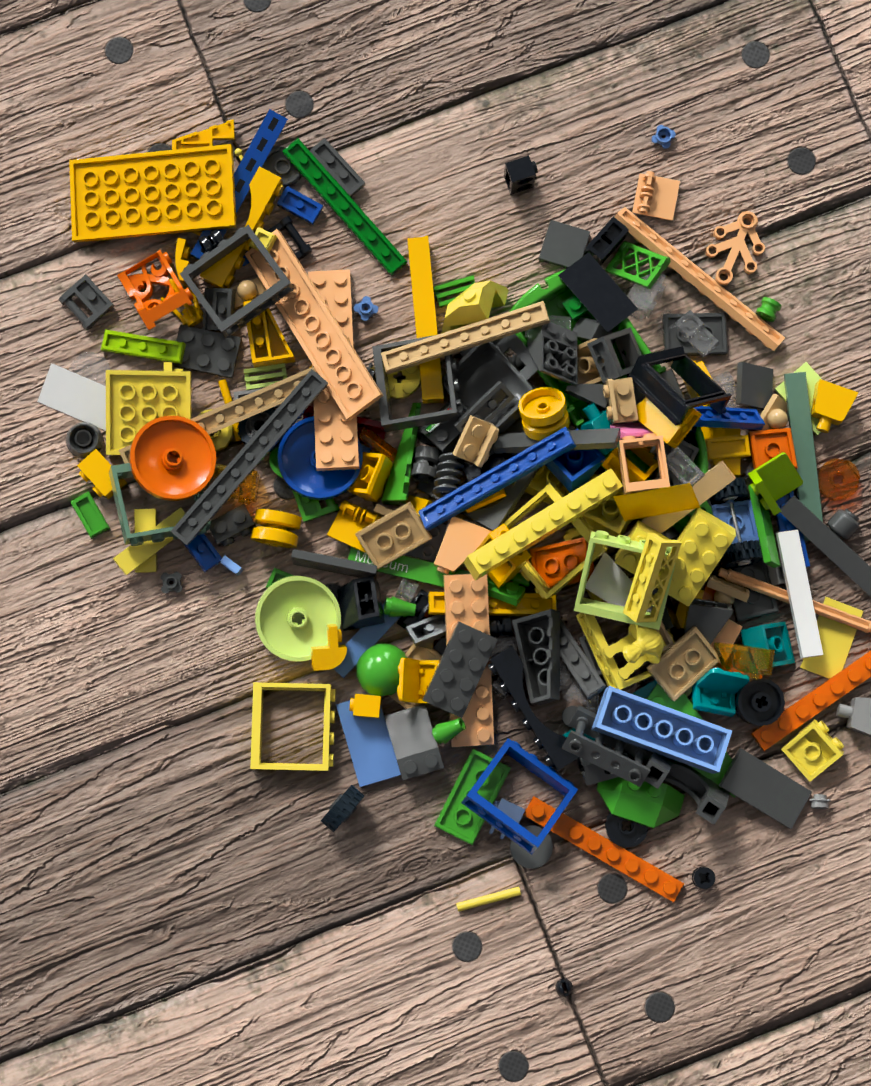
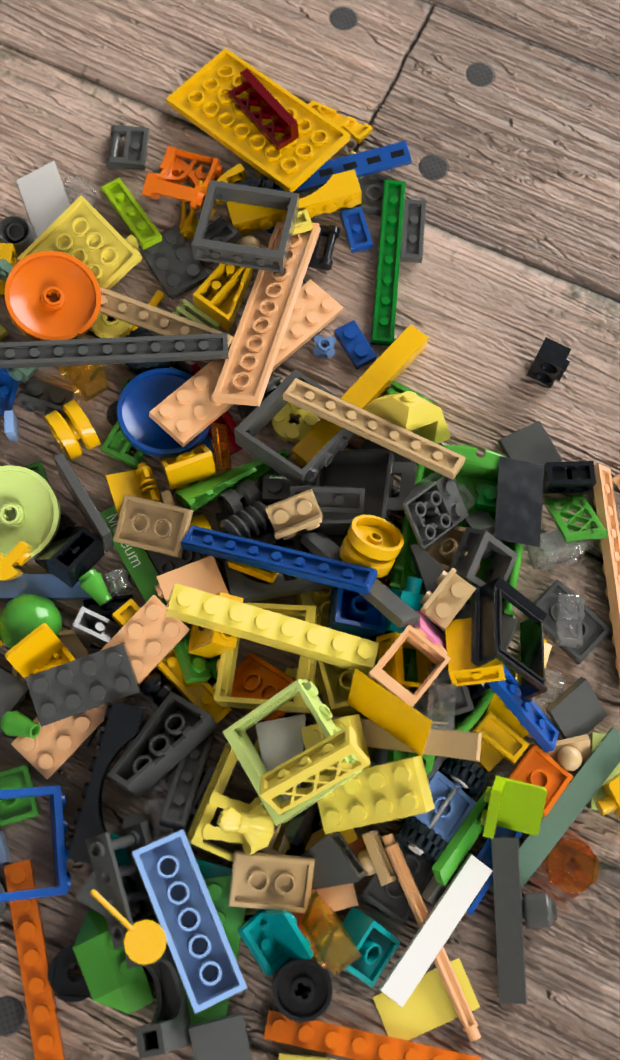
camera: 40 degrees right, 10 degrees down
(158, 178) = (268, 104): none -> dark red fence
(383, 287) = (355, 344): none -> blue plate
(653, 764) = (143, 941): none -> yellow piece

